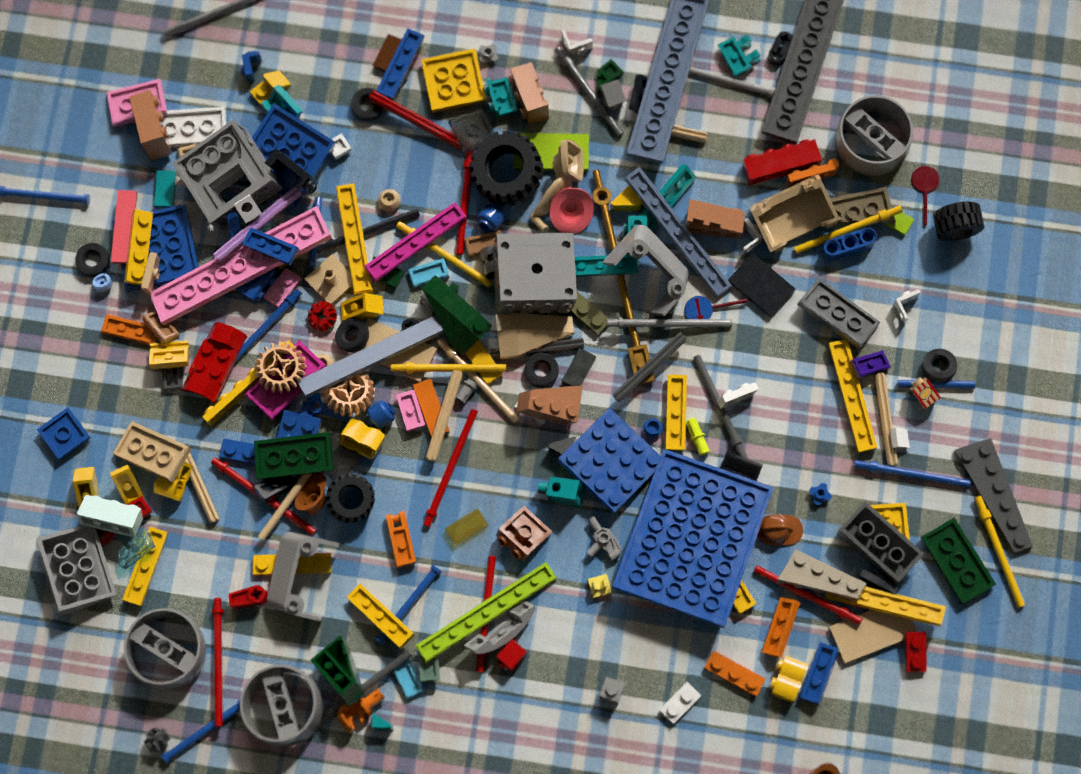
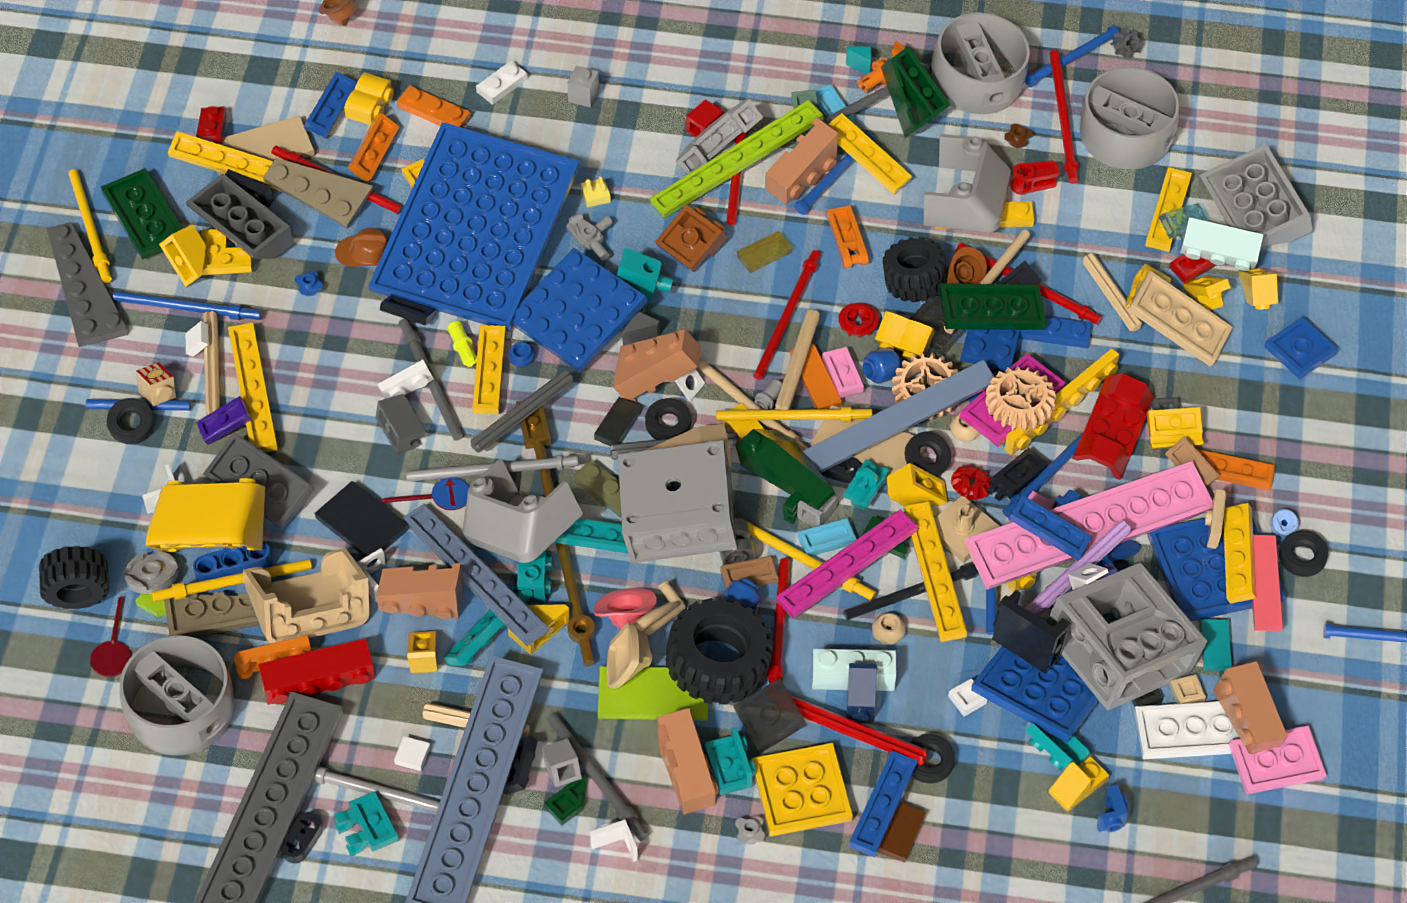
camera: 175 degrees right, 20 degrees down
(256, 638) = (1018, 136): none -> reddish brown plate
(289, 318) = (1016, 474): none -> black hinge
(390, 453) = (866, 313): none -> red gear
(398, 309) = (865, 484): none -> teal hips
(410, 142) = (861, 692): none -> slope
(414, 163) = (832, 666): none -> light aqua brick
(433, 604) = (804, 164): none -> nougat wedge
(710, 176) = (422, 652): none -> yellow slope
(712, 107) = (412, 753): none -> white tile
(739, 363) = (399, 423): none -> dark grey hinge
(872, 255) = (207, 516): none -> yellow windscreen
(906, 239) = (151, 572): none -> light grey tile
(918, 514) = (186, 253): none -> yellow slope

